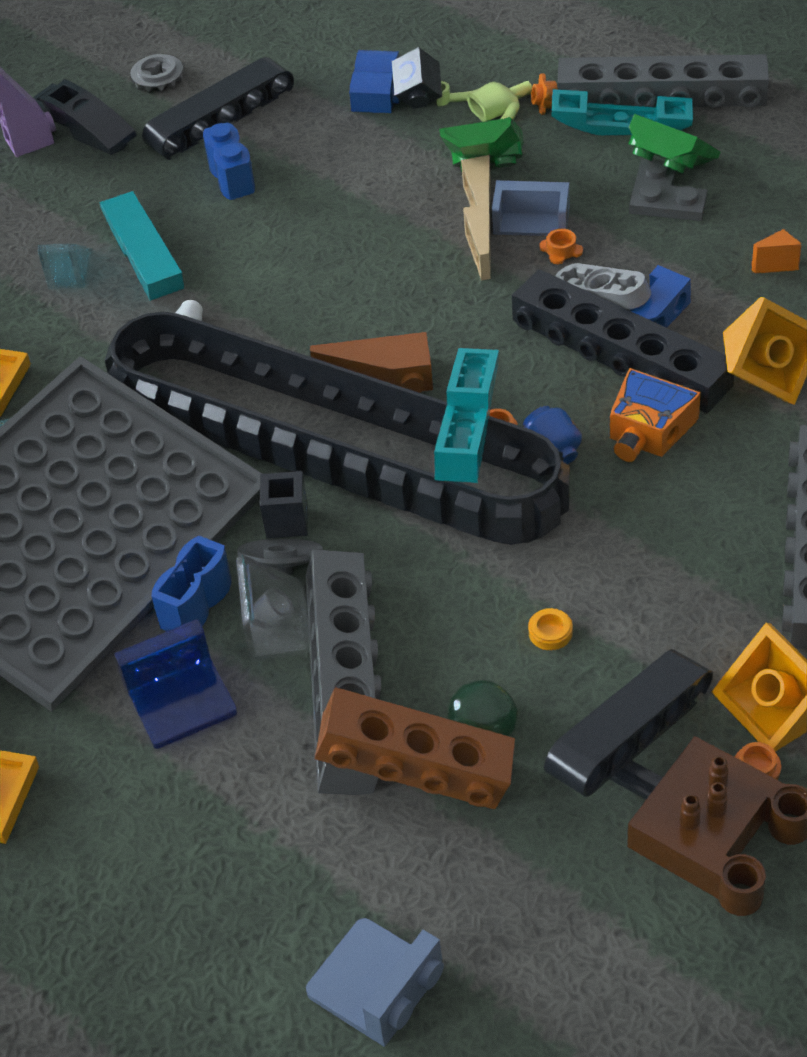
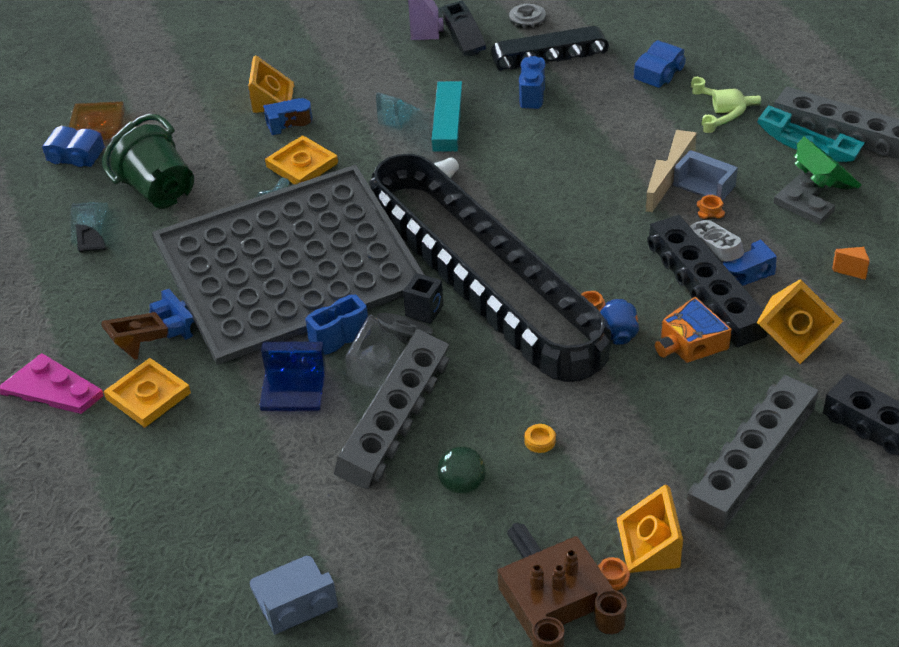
camera: 25 degrees right, 5 degrees down
(393, 359) = (547, 239): dark orange slope -> none
(415, 748) = (392, 453): dark orange brick -> none
(417, 78) = (684, 70): black brick -> none
(466, 416) = (566, 275): teal slope -> none
(497, 138) = (707, 123): green slope -> none
(542, 93) = (763, 104): orange plate -> none
(627, 722) = (540, 509): black beam -> none

